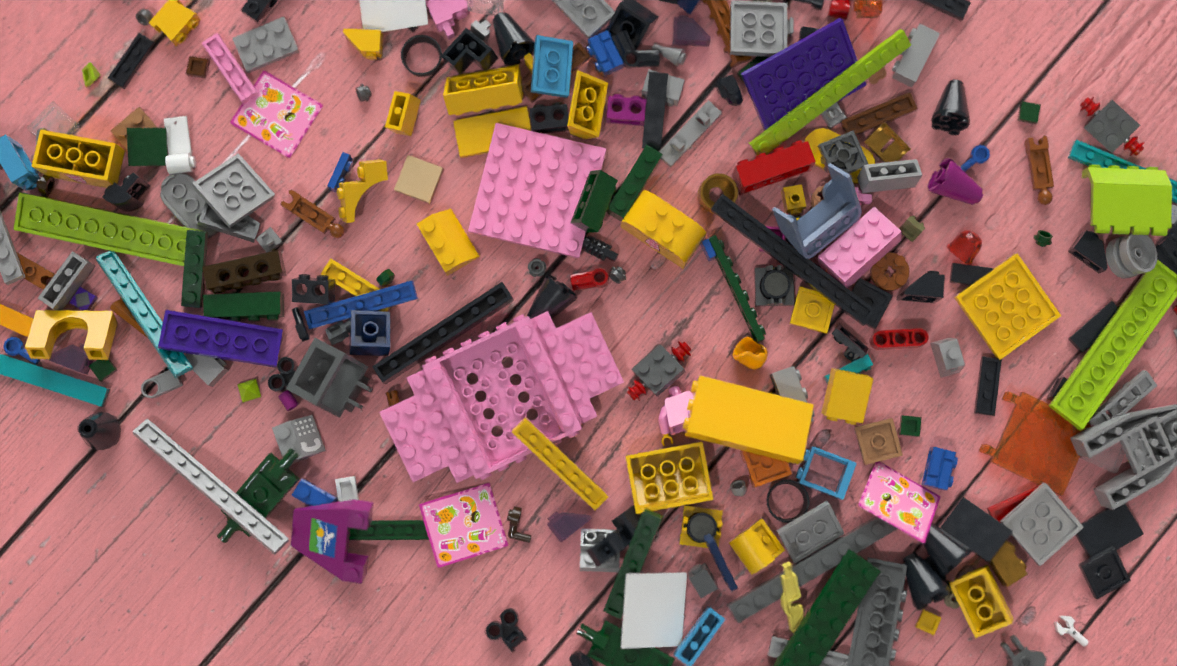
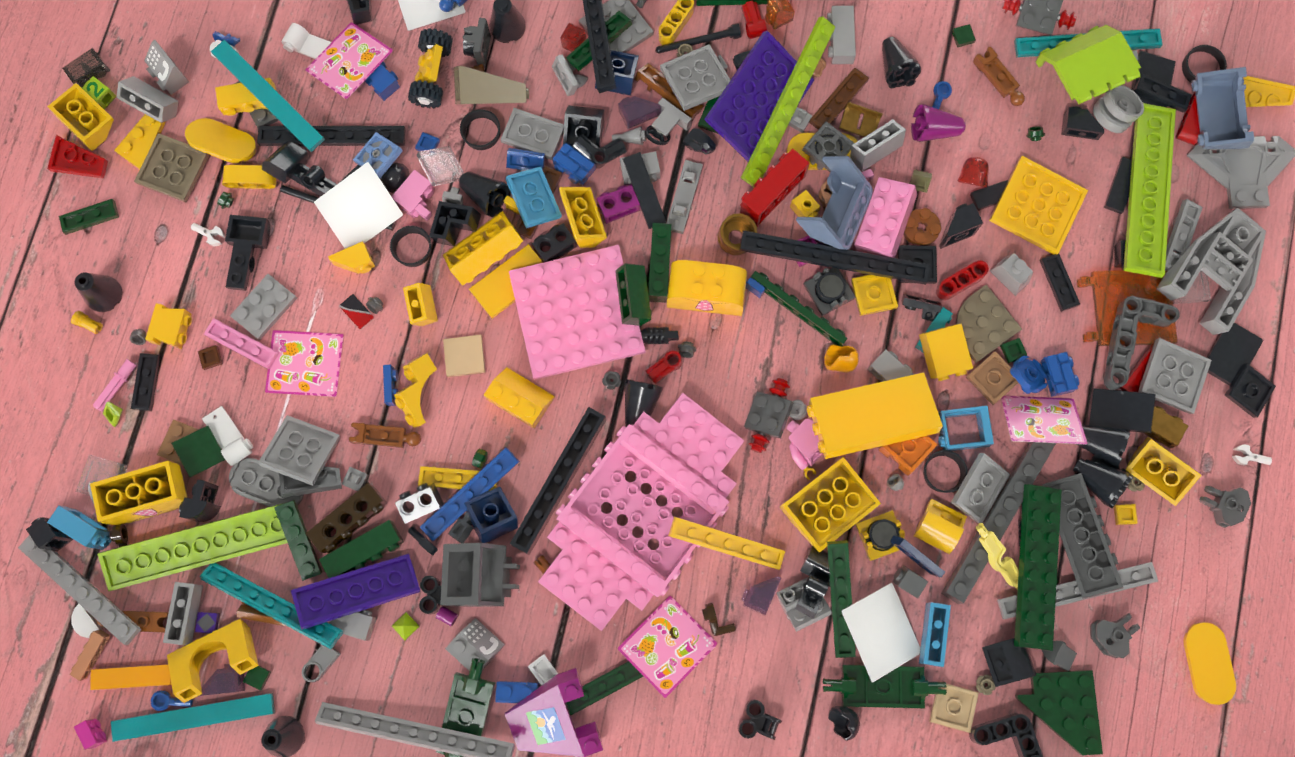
camera: 25 degrees left, 5 degrees down
(104, 49) = (115, 384): none -> bright pink axle
(344, 90) = (356, 311): none -> sticker
(563, 27) = (524, 159): none -> blue plate
(686, 380) = (798, 410): none -> light grey tile
(709, 56) = (666, 122): none -> light grey piece
(898, 388) = (985, 323): none -> dark tan plate
(905, 462) = (1029, 383): none -> blue plate
(1019, 459) = (1125, 329): none -> dark grey beam

